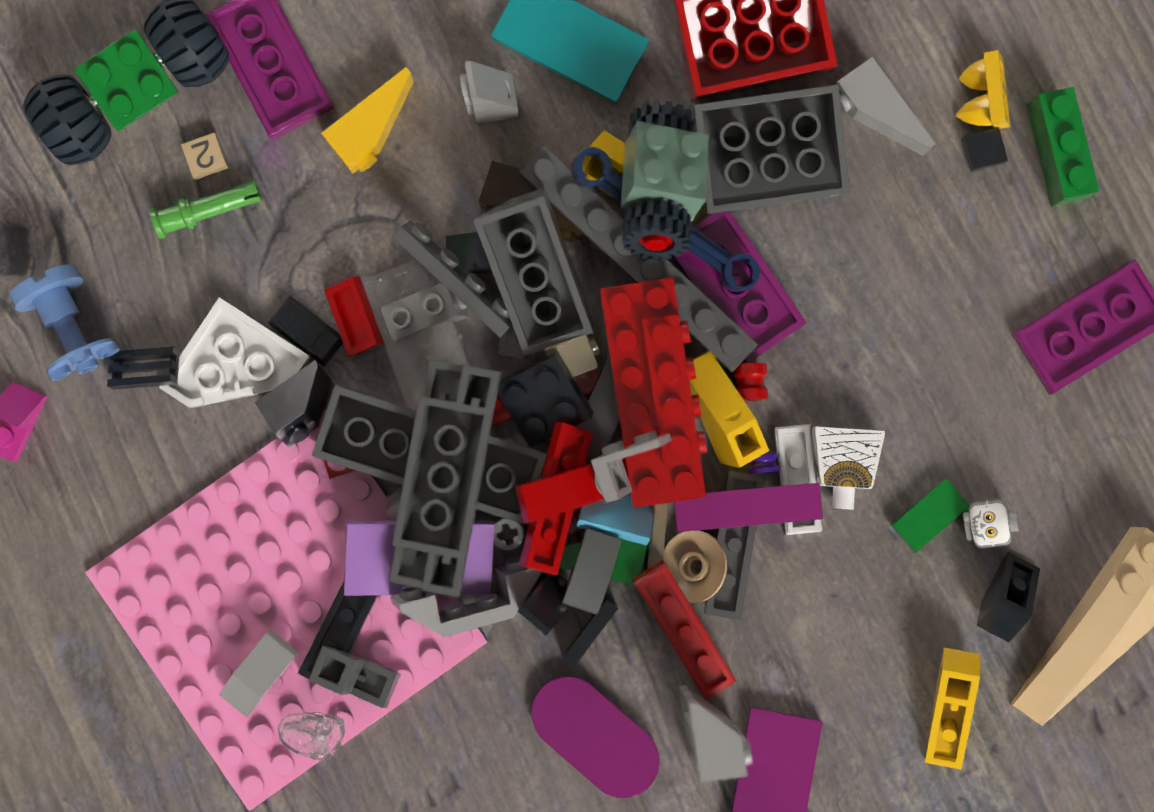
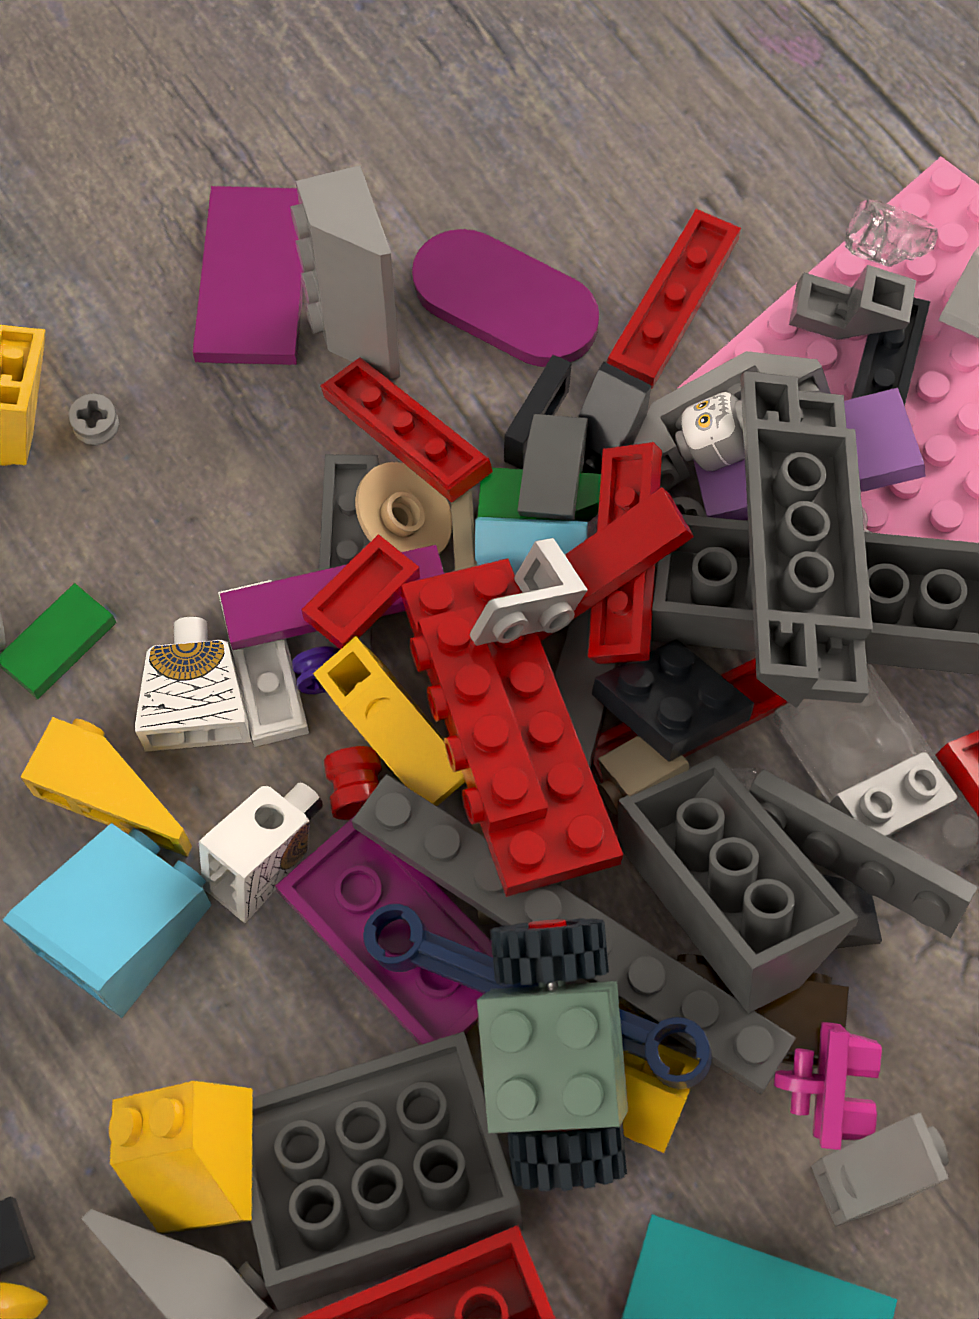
camera: 175 degrees right, 20 degrees down
(475, 713) = (674, 297): none -> red plate
(480, 582) = (713, 432): none -> head
(496, 155) = (834, 1114): none -> dark pink hips
(731, 500) = (360, 592): none -> red tile
(825, 335) = (257, 847): none -> white torso
(874, 171) = (186, 1153): none -> yellow slope
(900, 690) = (105, 427): none -> light grey bush
(907, 316) = (111, 915): none -> medium azure slope
(910, 410) = (88, 776): none -> yellow slope

